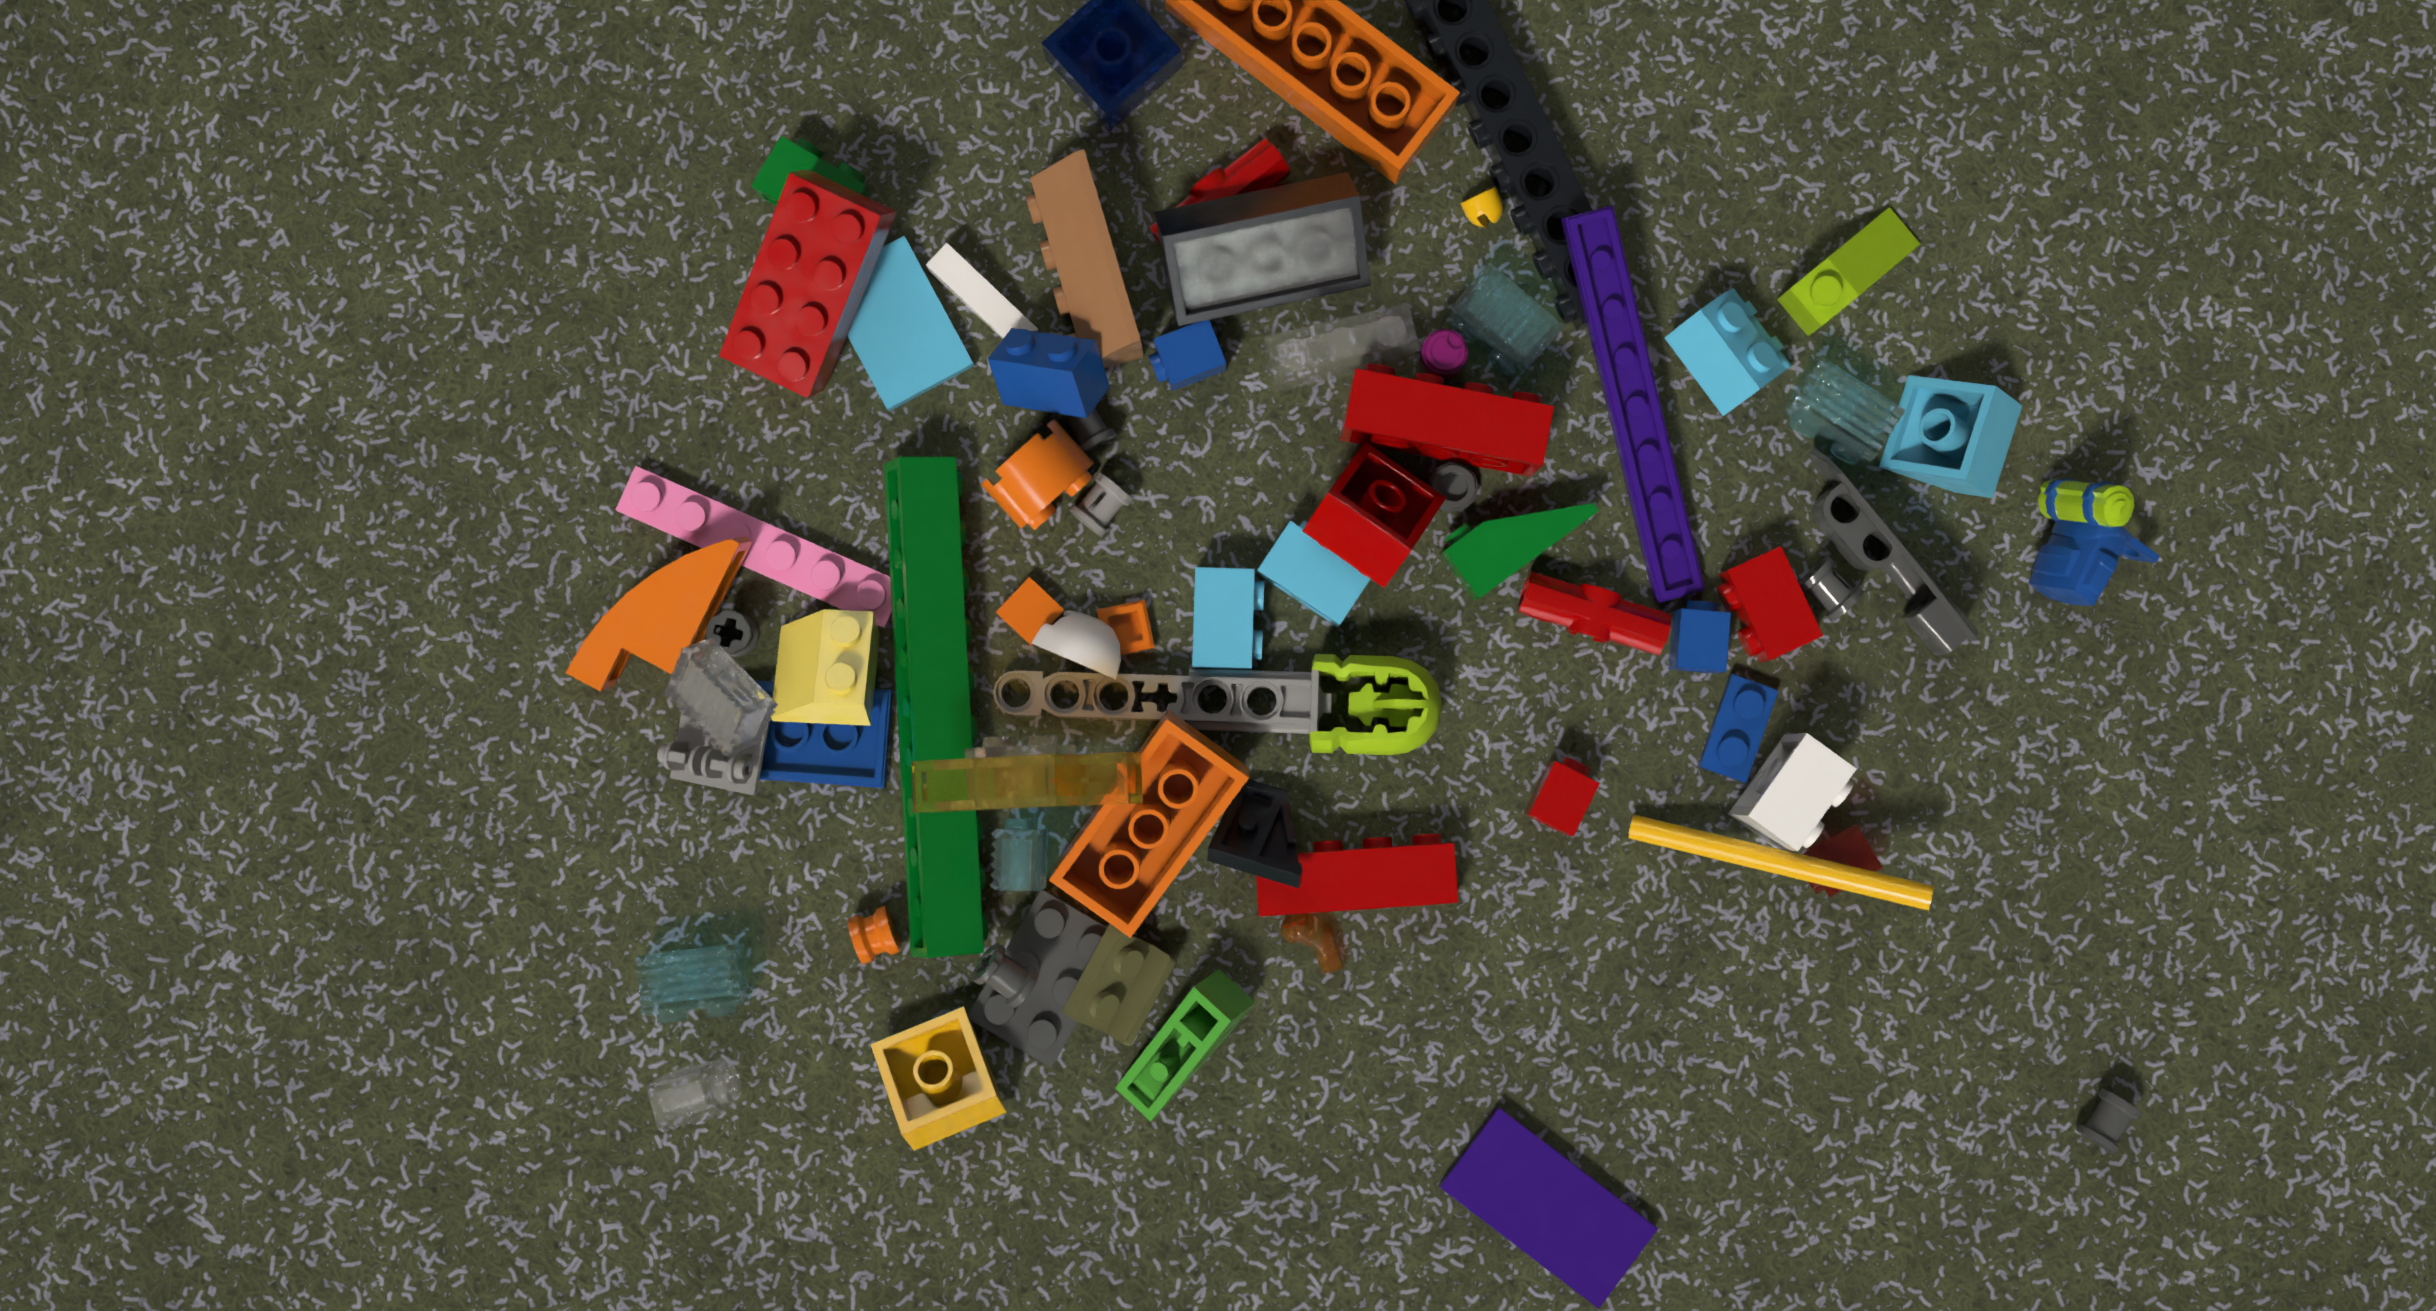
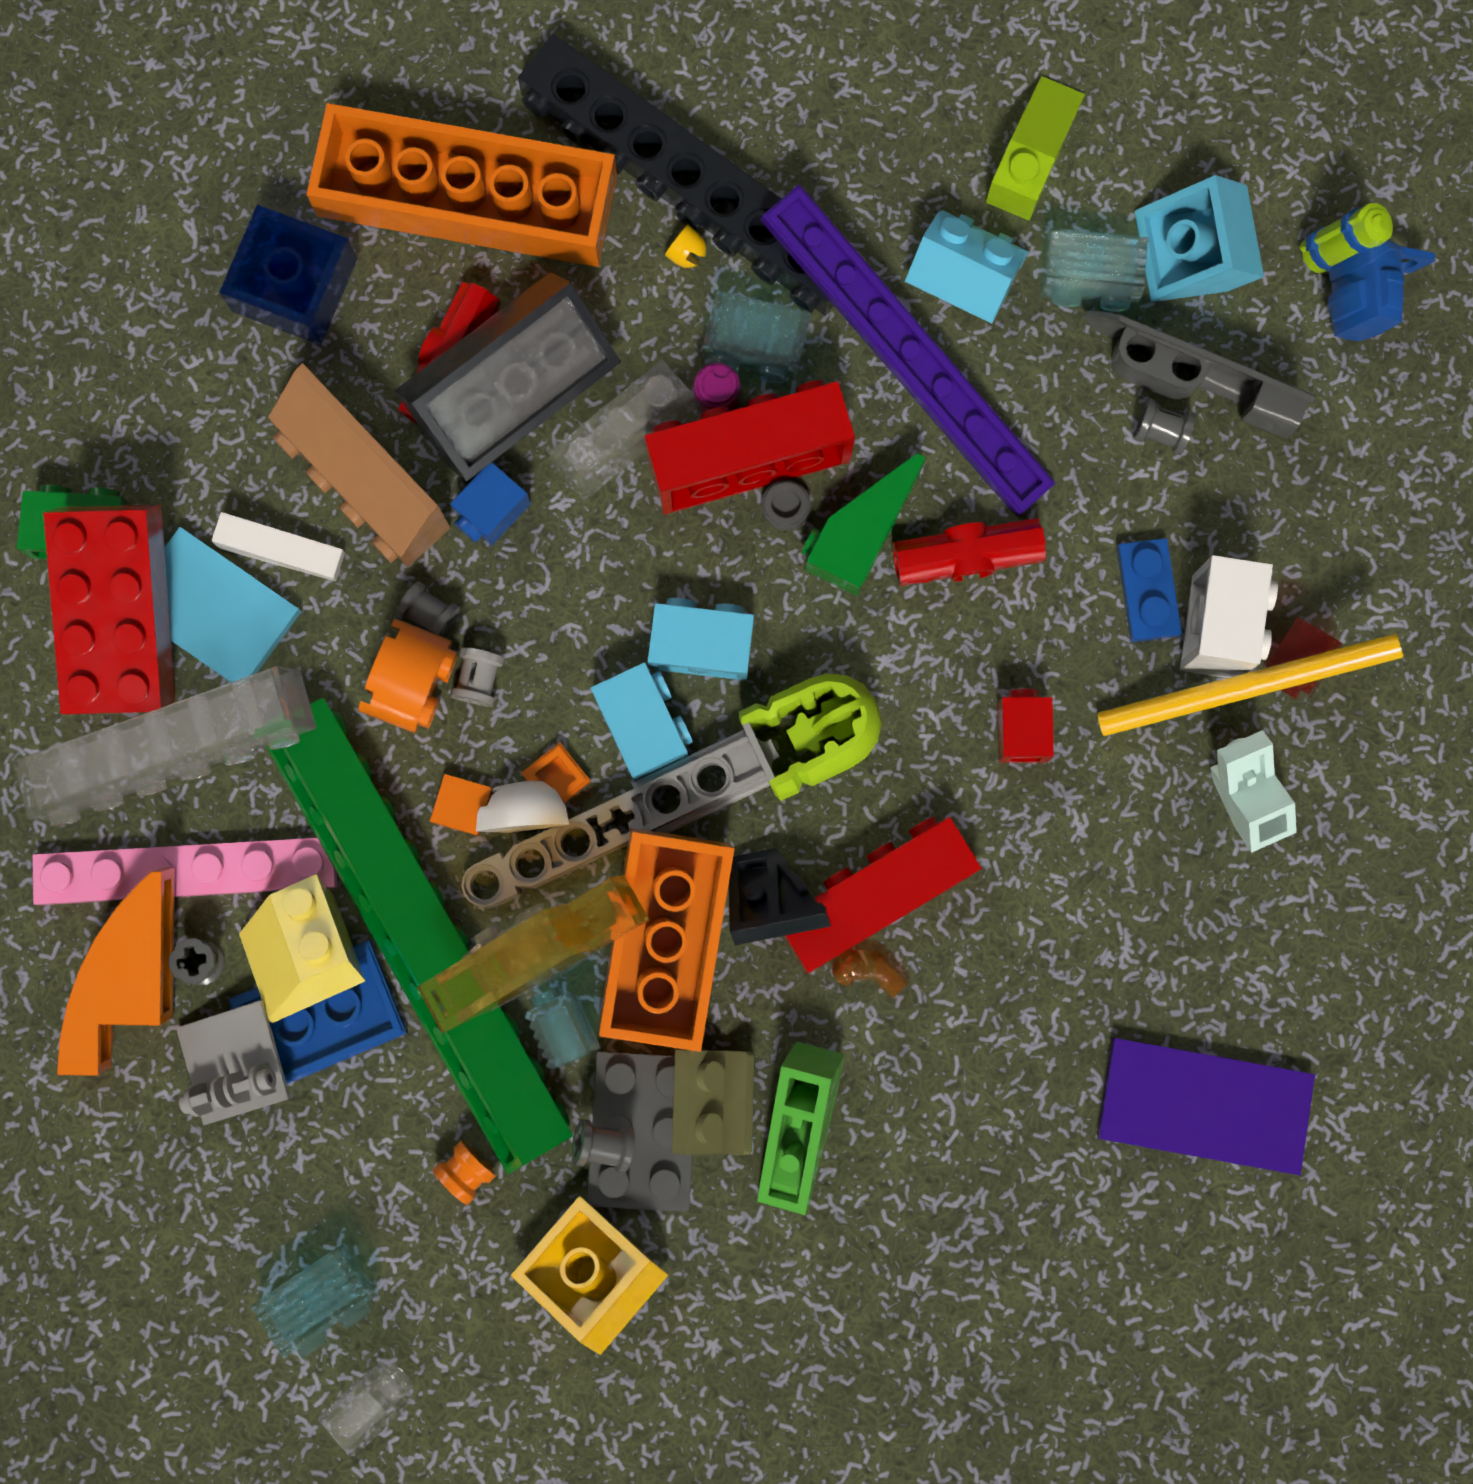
camera: 25 degrees left, 5 degrees down
(719, 697) = (212, 1023): clear brick -> none
(798, 431) = (165, 745): none -> clear brick
(1049, 372) = (370, 579): blue brick -> none
(1374, 514) = (727, 560): red brick -> none
(1699, 638) = (1073, 527): blue brick -> none
(1734, 957) = (1252, 792): none -> light aqua brick
(1768, 606) = (1118, 467): red brick -> none

